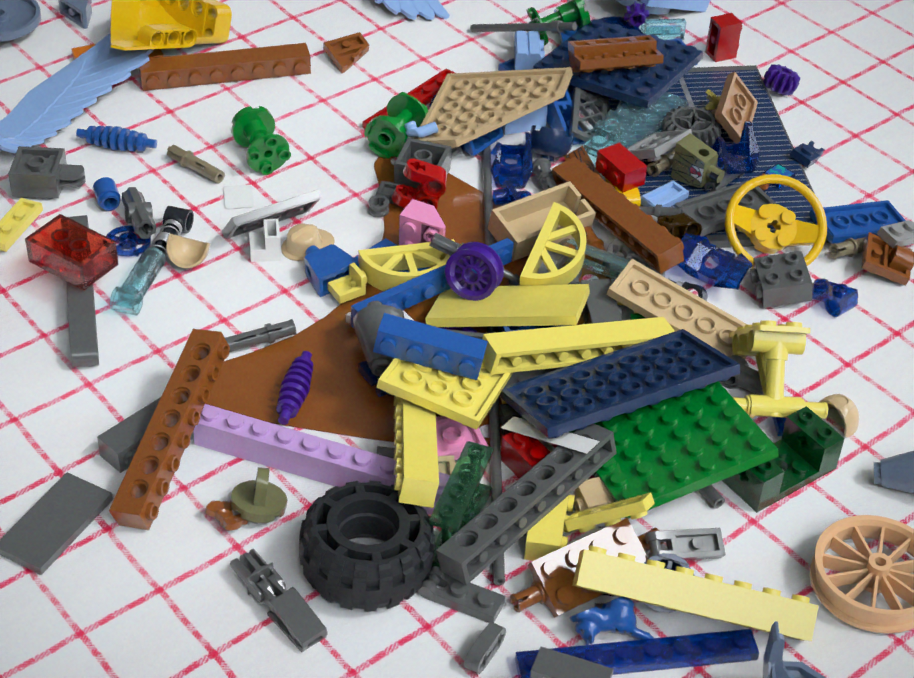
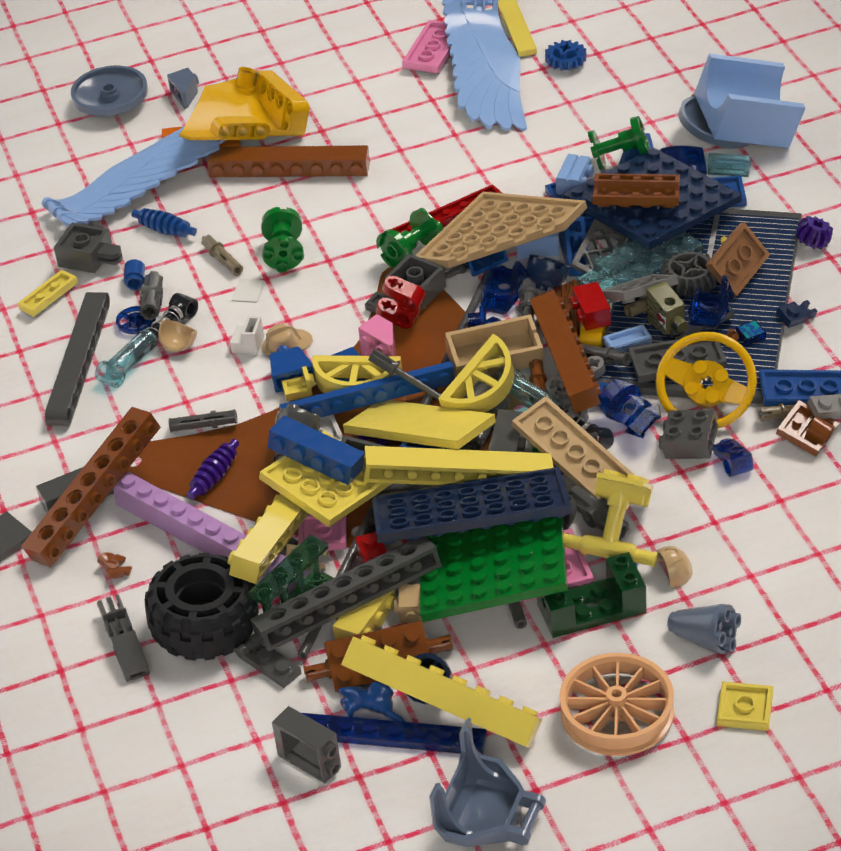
camera: 25 degrees right, 0 degrees up
(72, 251) = (74, 325): clear red brick -> none
(259, 499) = (142, 556): olive tile -> none
(281, 211) = (265, 310): tile -> none
(346, 50) = (408, 156): dark orange wing -> none
(378, 206) = (362, 314): dark grey bush -> none
(422, 131) = (417, 247): light blue arm -> none
(481, 259) = (396, 388): dark purple wheel -> none
(485, 647) = (263, 703): dark grey beam -> none
(555, 26) = (601, 154): dark grey bar -> none
(567, 440) = (399, 548): white sticker -> none
(610, 513) = (407, 615): light yellow plate -> none
(636, 14) = (702, 146): dark purple gear -> none
(680, 224) = (613, 369): dark brown piece -> none
(688, 543) = (469, 652): plate -> none
(723, 37) = (778, 180): red brick -> none

